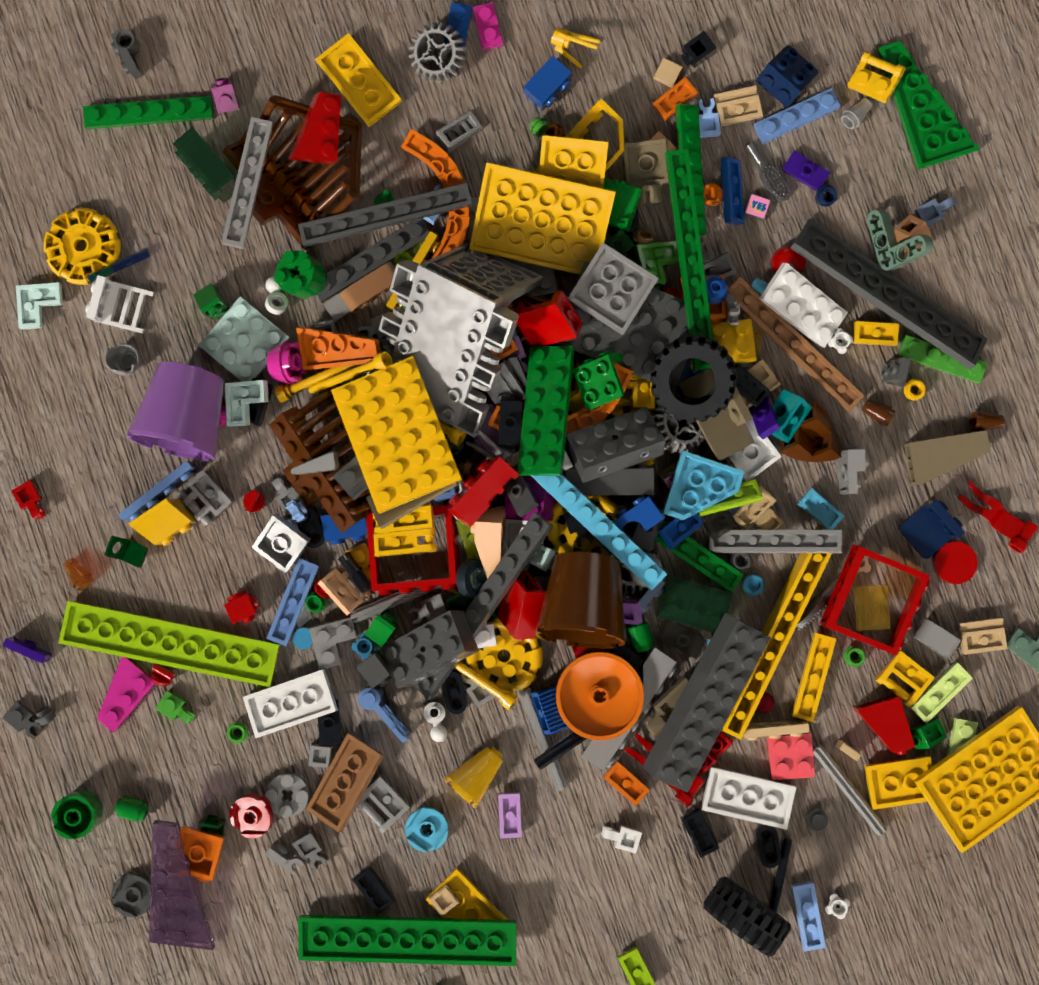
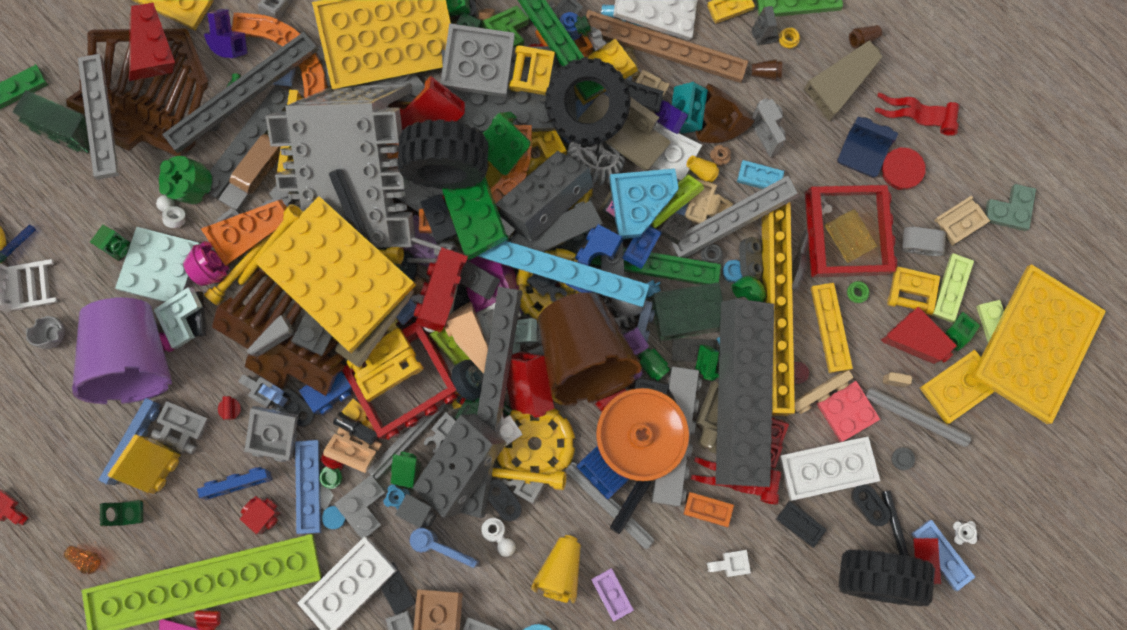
camera: 30 degrees left, 10 degrees down
(224, 95) = (49, 58): magenta bracket -> none
(232, 569) = (234, 483): none -> blue plate
(390, 152) = (221, 37): none -> dark purple brick
(435, 375) = (347, 202): none -> black axle
(538, 378) = (442, 154): none -> black tyre
(664, 324) = (539, 70): none -> yellow plate
(671, 566) = (654, 288): none -> dark azure plate
(687, 658) = (707, 362): none -> green bracket
(725, 299) = (583, 25): none -> dark green plate
(760, 610) = (749, 288): none -> green hair
(771, 479) = (703, 168): none -> yellow cone
(773, 582) = (751, 257): none -> dark grey plate
(790, 477) = (714, 155): none -> medium nougat plate
(793, 912) = (928, 550): none -> red slope
(846, 341) = (703, 20): white plate -> none

